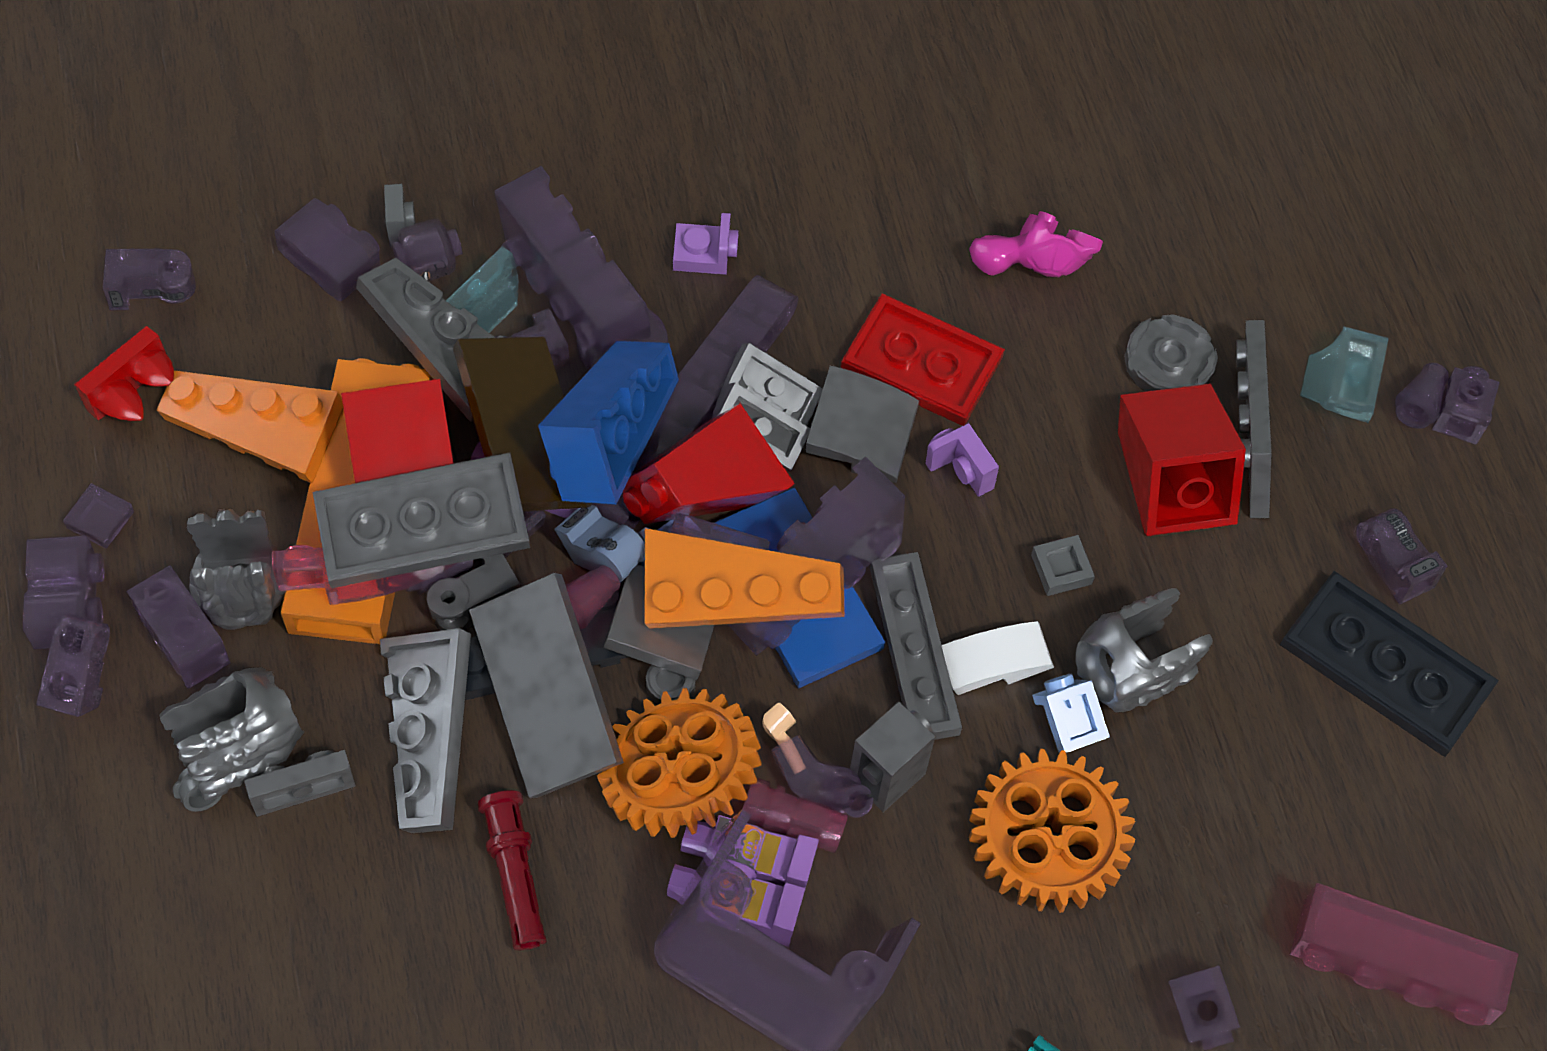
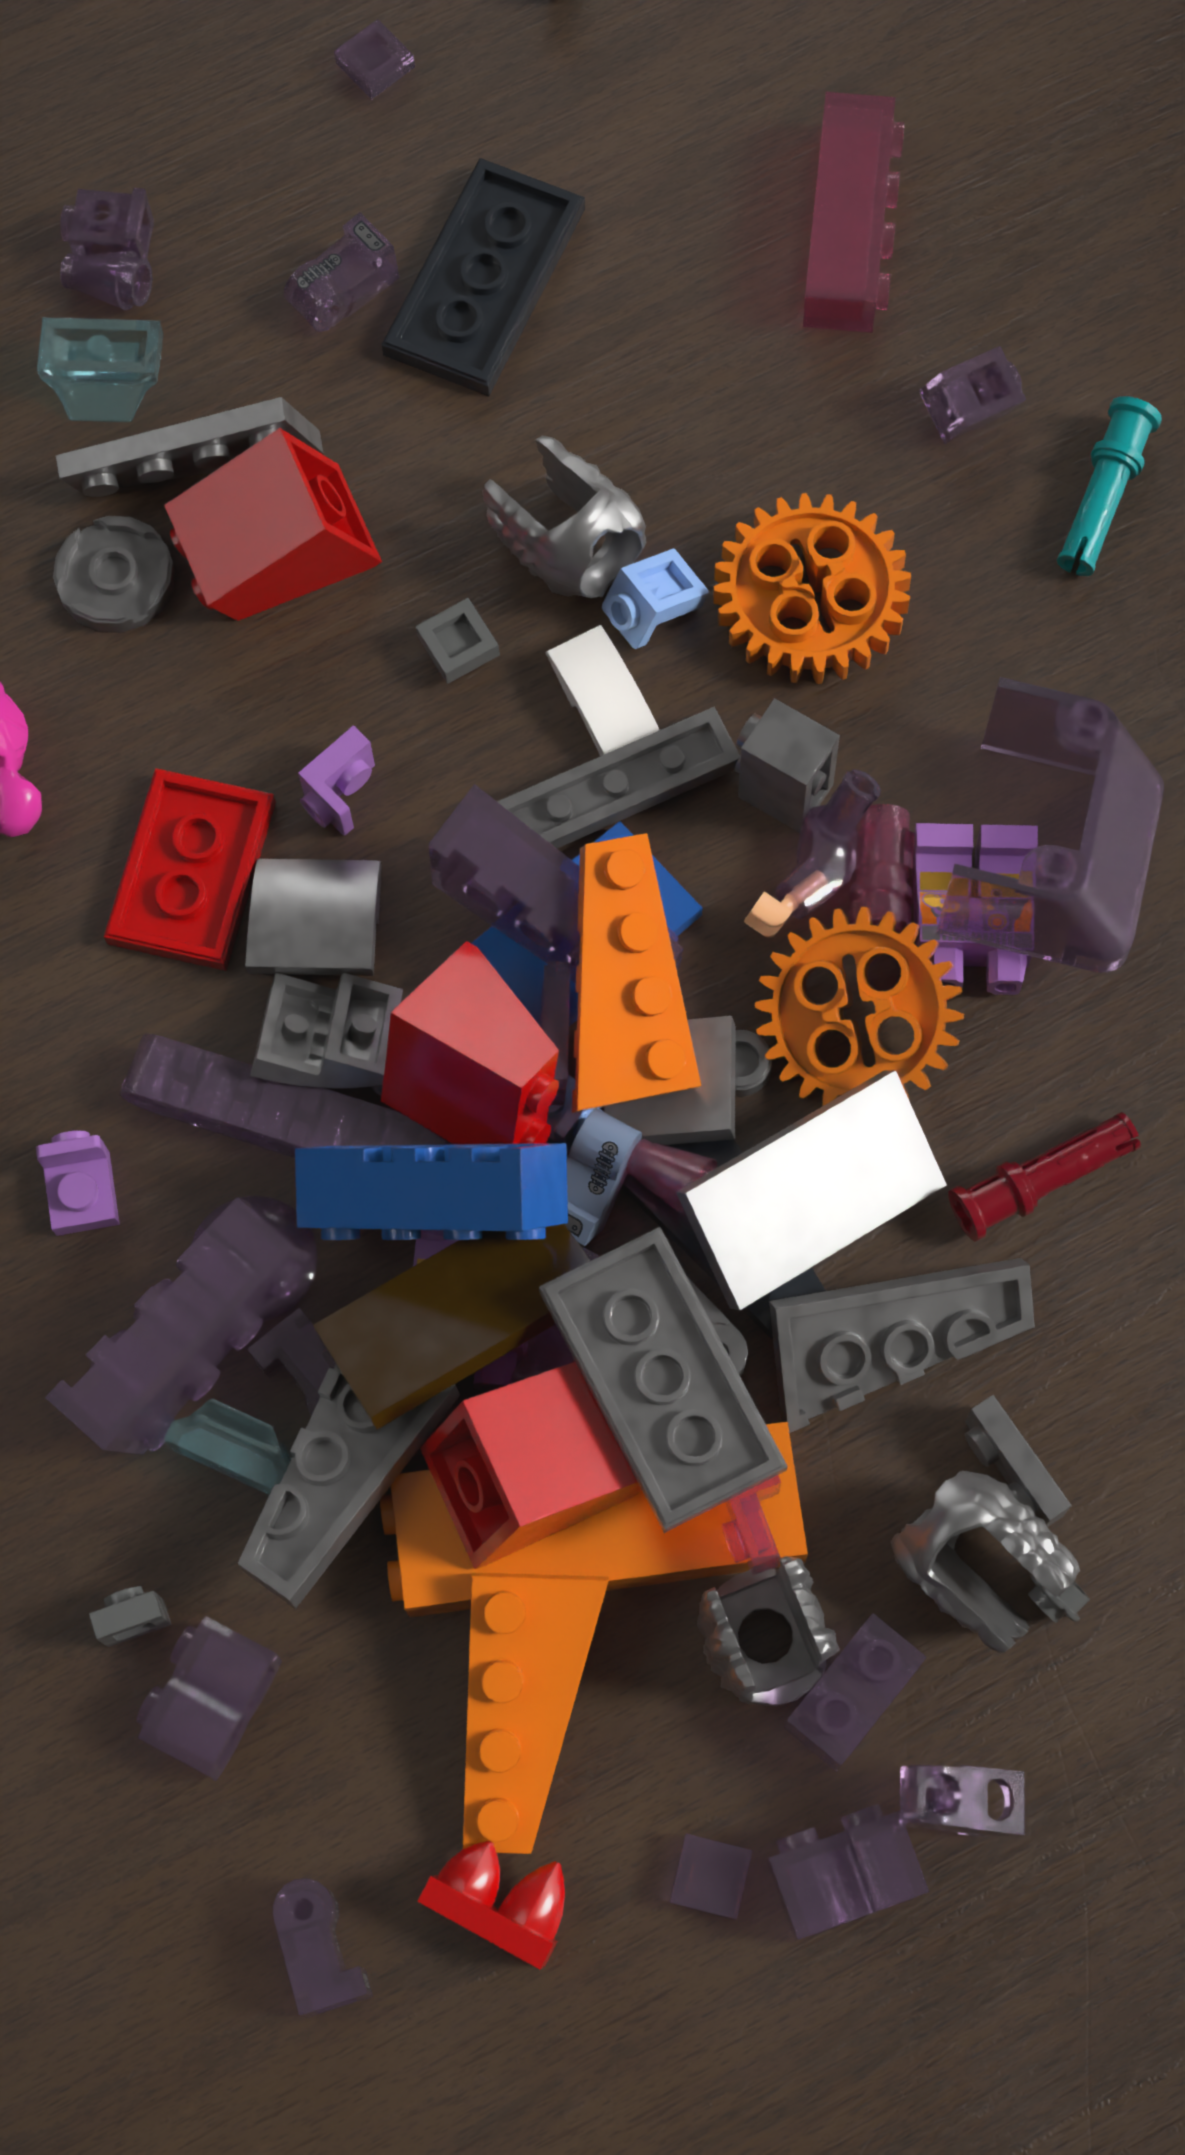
camera: 95 degrees left, 10 degrees up
(428, 248) = (179, 1558): clear purple head -> none

